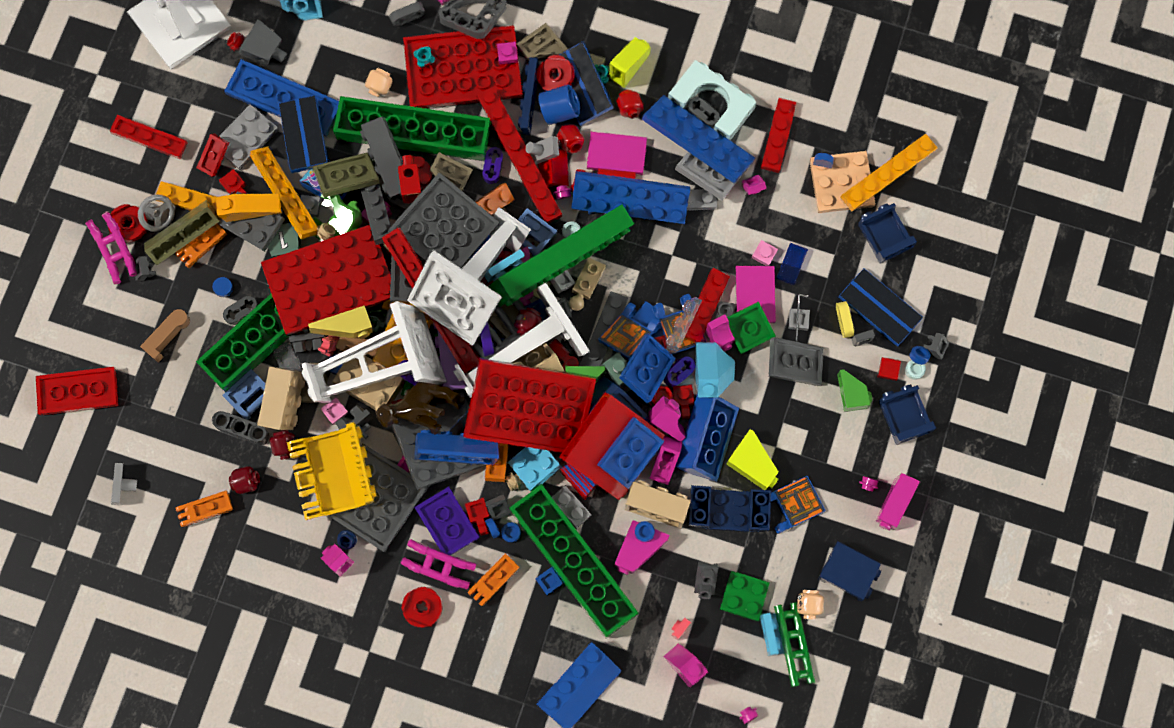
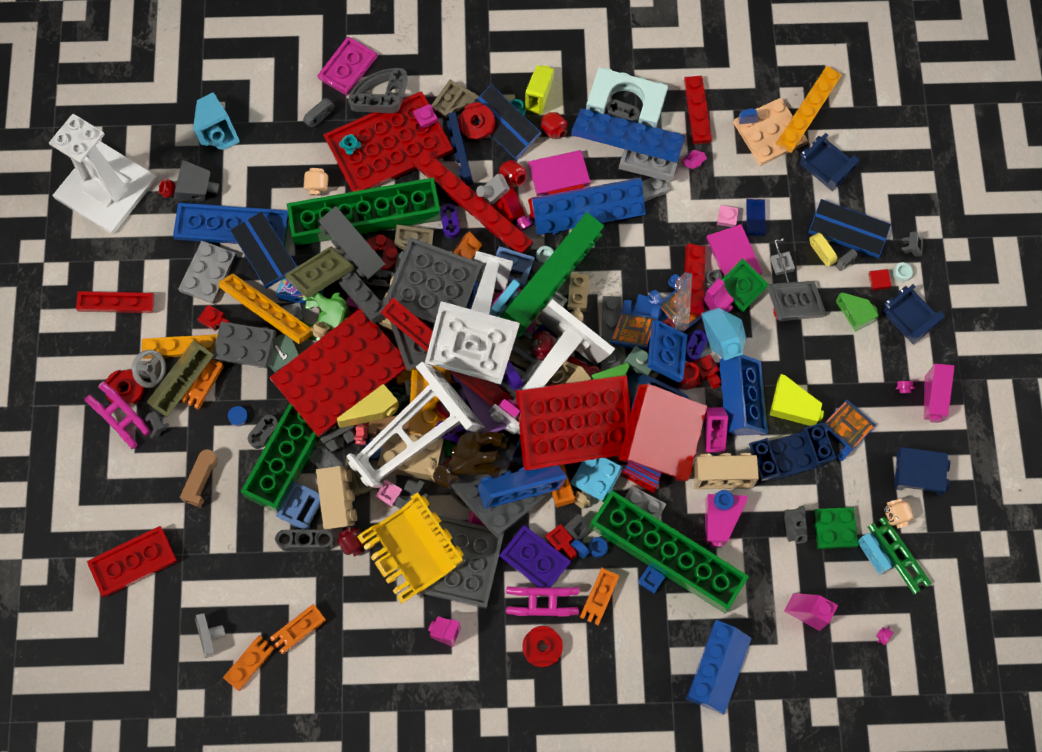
camera: 20 degrees left, 5 degrees down
(148, 524) = (248, 663): none -> orange hinge
(213, 155) = (184, 297): red plate -> none
(244, 480) = (327, 587): dark red head -> none
(247, 206) = (237, 330): light orange slope -> none
(345, 544) = (446, 613): dark blue plate -> none
(409, 186) = (383, 255): red torso -> none
(469, 372) = (509, 407): none -> dark pink plate
(559, 104) = (492, 145): blue piece -> none
(630, 453) = (683, 432): blue tile -> none
(666, 416) = (701, 388): dark pink arch -> none
(679, 628) = (790, 578): coral plate -> none
(919, 355) = (902, 258): blue tile -> none

